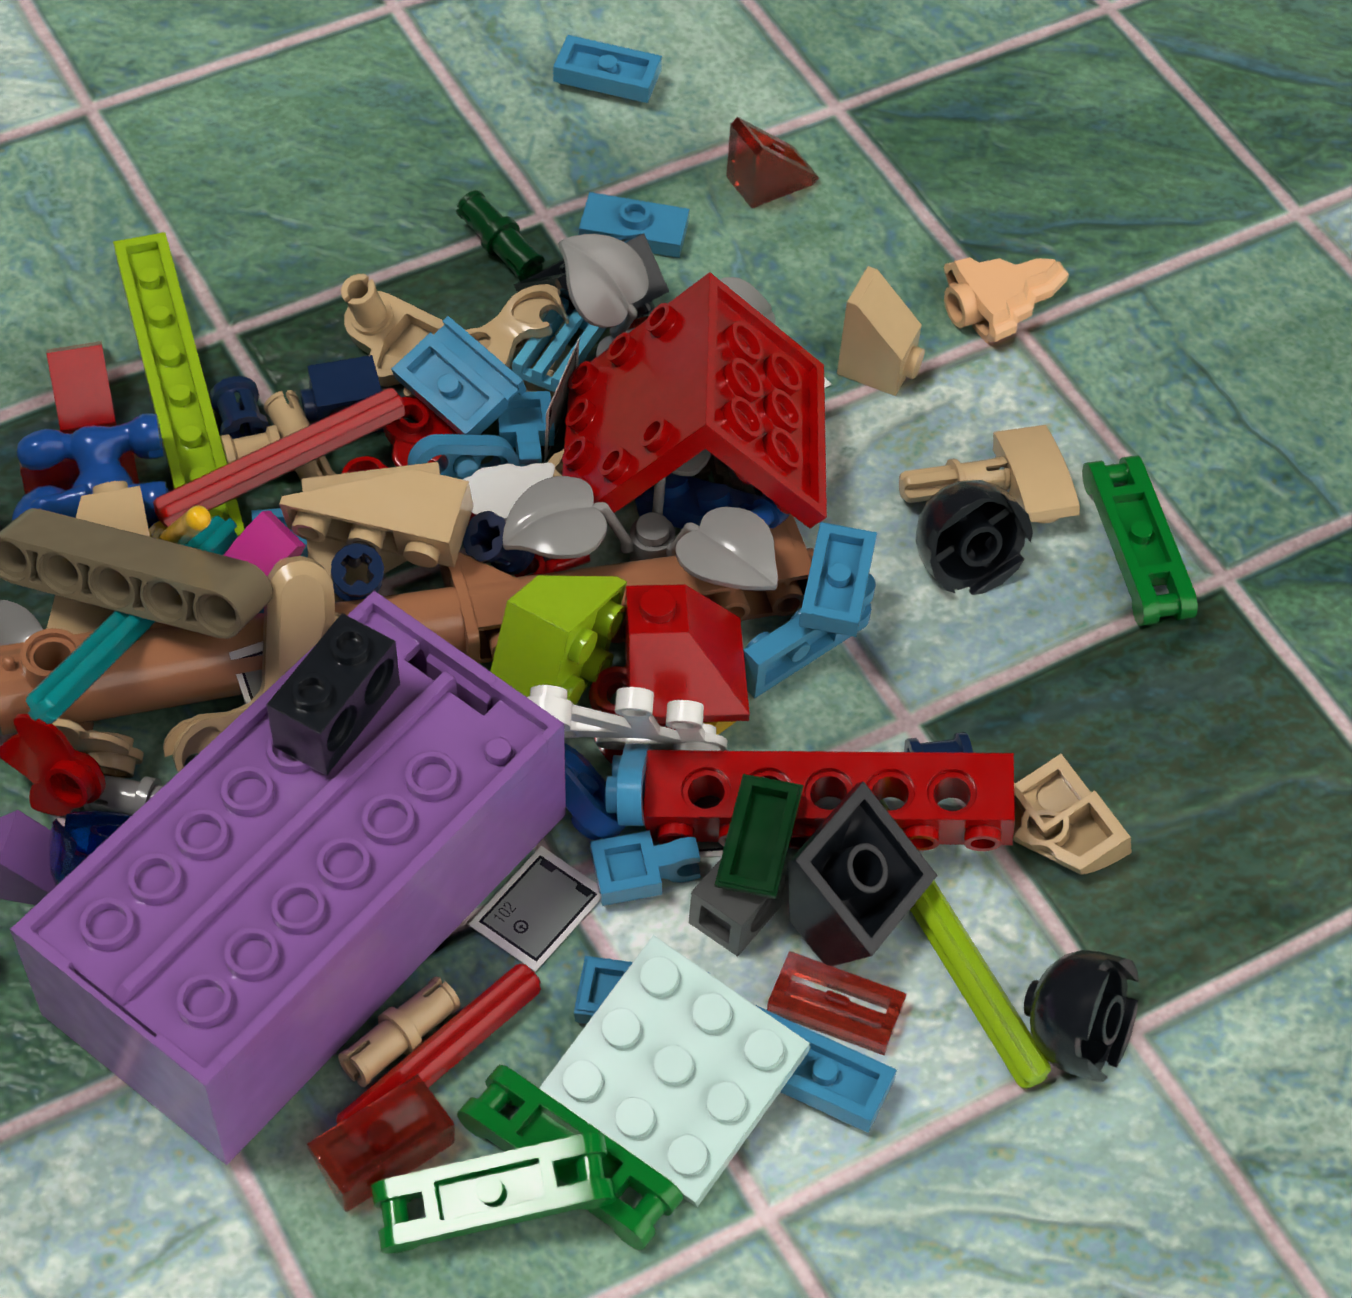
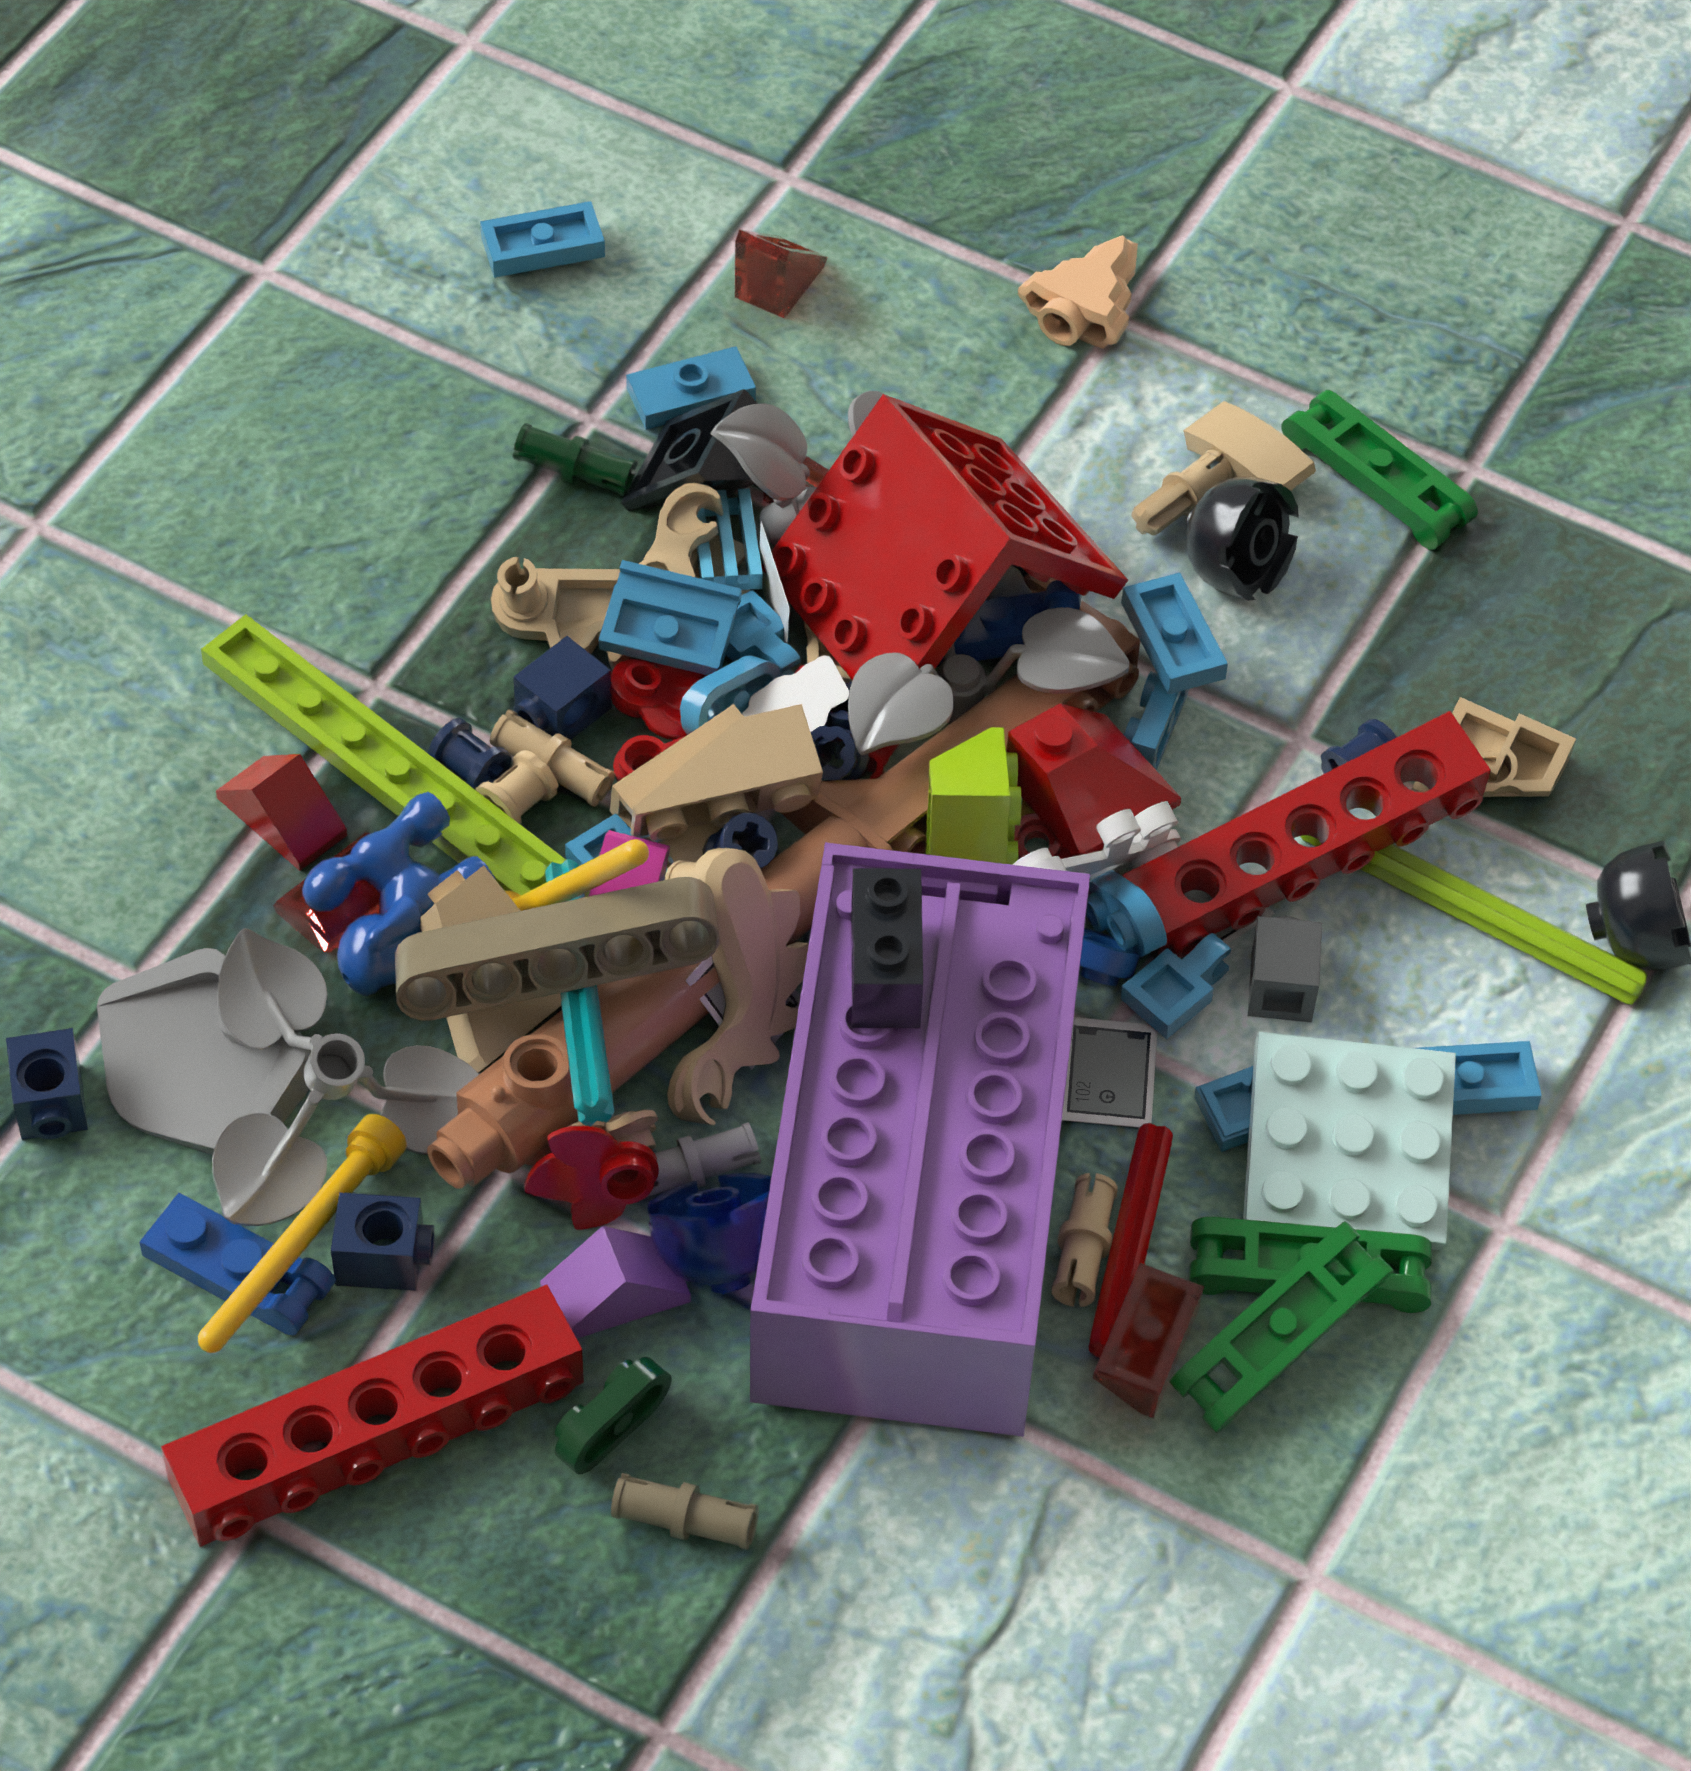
camera: 30 degrees left, 0 degrees up
(281, 456) = (566, 776): red axle -> none
(759, 836) = (1285, 897): dark green tile -> none
(834, 1012) = (1431, 1023): clear red tile -> none
(854, 880) = (1391, 899): black slope -> none
(879, 336) = (1022, 388): tan slope -> none

